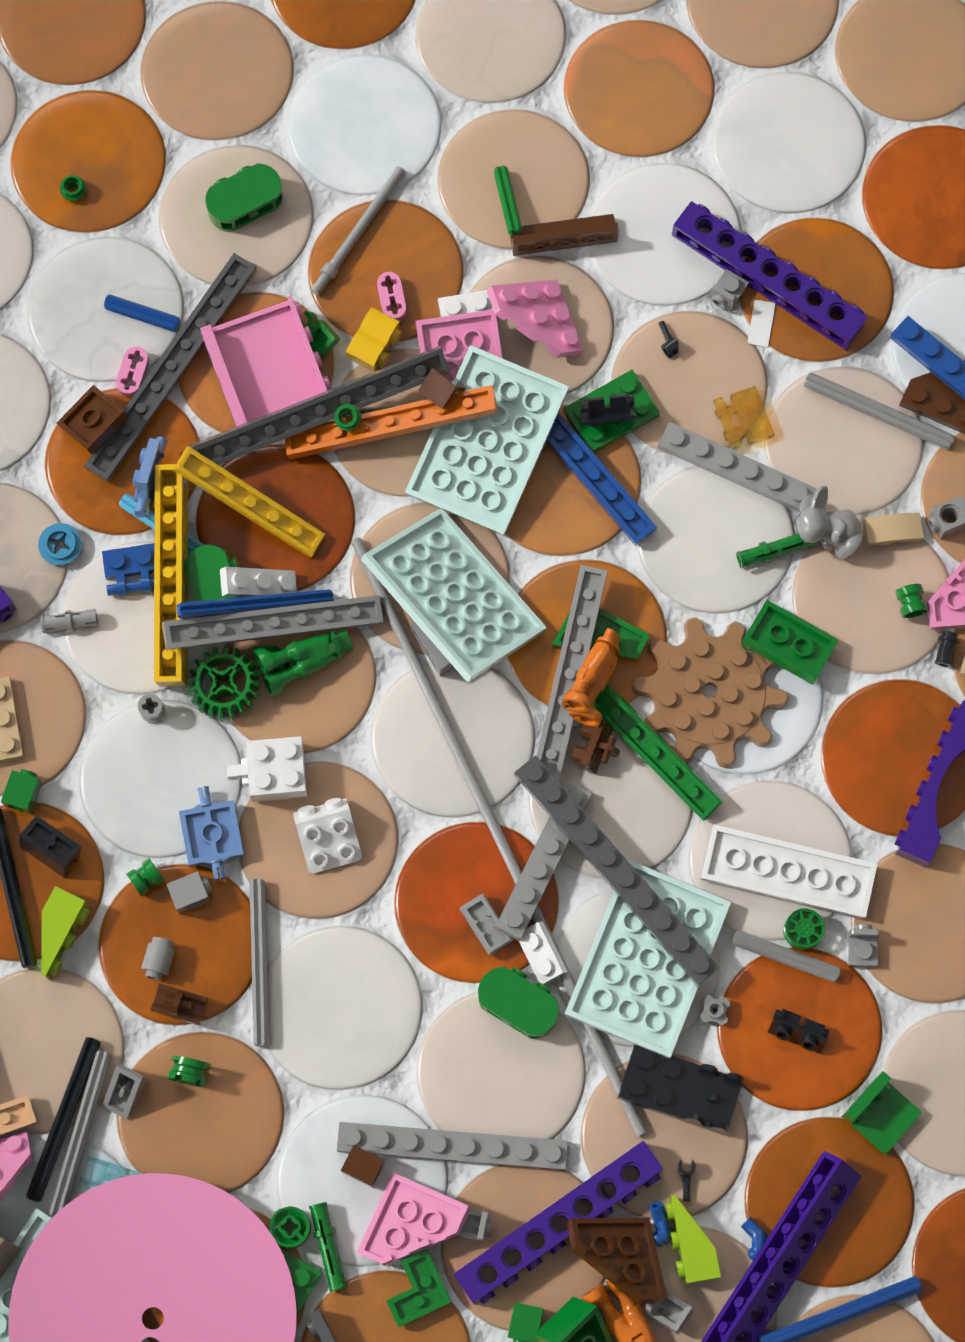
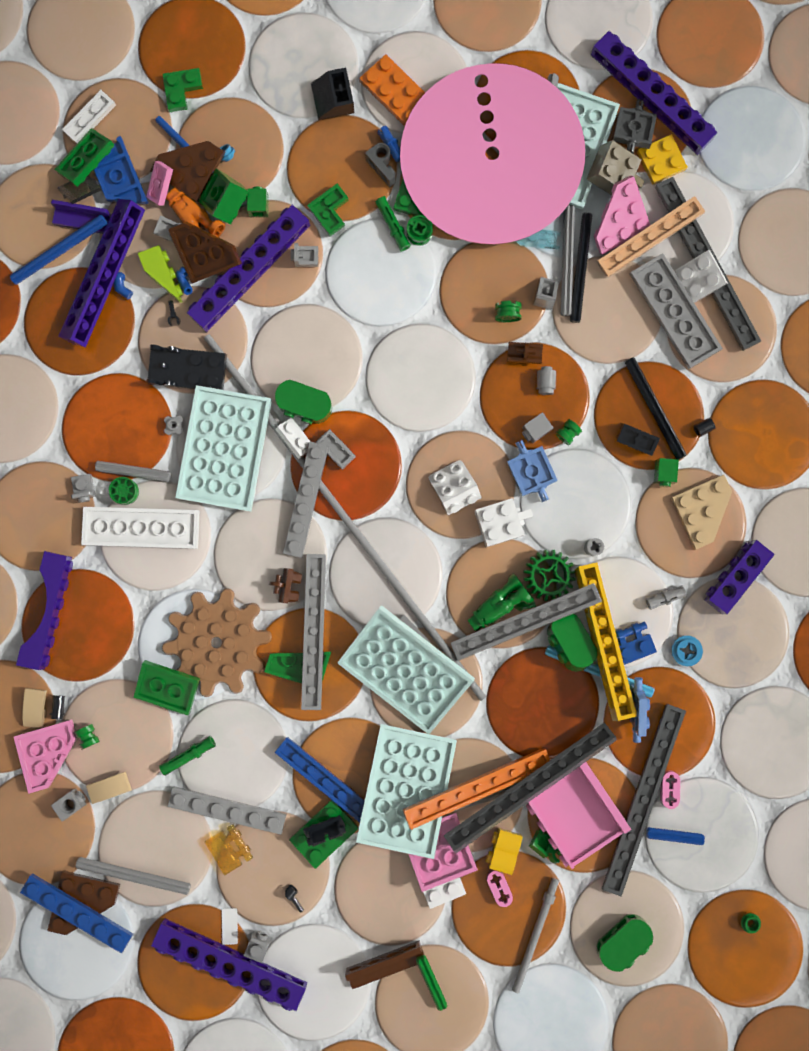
camera: 165 degrees right, 10 degrees up
(59, 922) = (617, 391): lime slope -> none
(92, 419) = (689, 746): reddish brown plate -> none
(249, 501) = (564, 706): yellow tile -> none
(251, 603) = (542, 632): blue axle -> none
(256, 582) = (543, 649): white plate -> none
(259, 962) = (479, 393): light grey axle -> none
(342, 411) = (515, 784): green plate -> none
(363, 1166) = (381, 275): reddish brown panel -> none
(410, 1221) = (343, 248): bright pink plate -> none
(440, 387) = (447, 820): reddish brown panel -> none
(453, 1145) = (327, 303): light grey plate -> none
(539, 313) = (390, 896): bright pink plate -> none
(592, 680) = (296, 629): orange piece -> none
(616, 871) = (255, 501): dark grey plate -> none
(657, 753) = (245, 591): green tile -> none
(810, 1036) = (107, 422): black hinge -> none
(836, 529) = (146, 777): light grey animal -> none
(881, 1114) = (53, 381): green bracket -> none

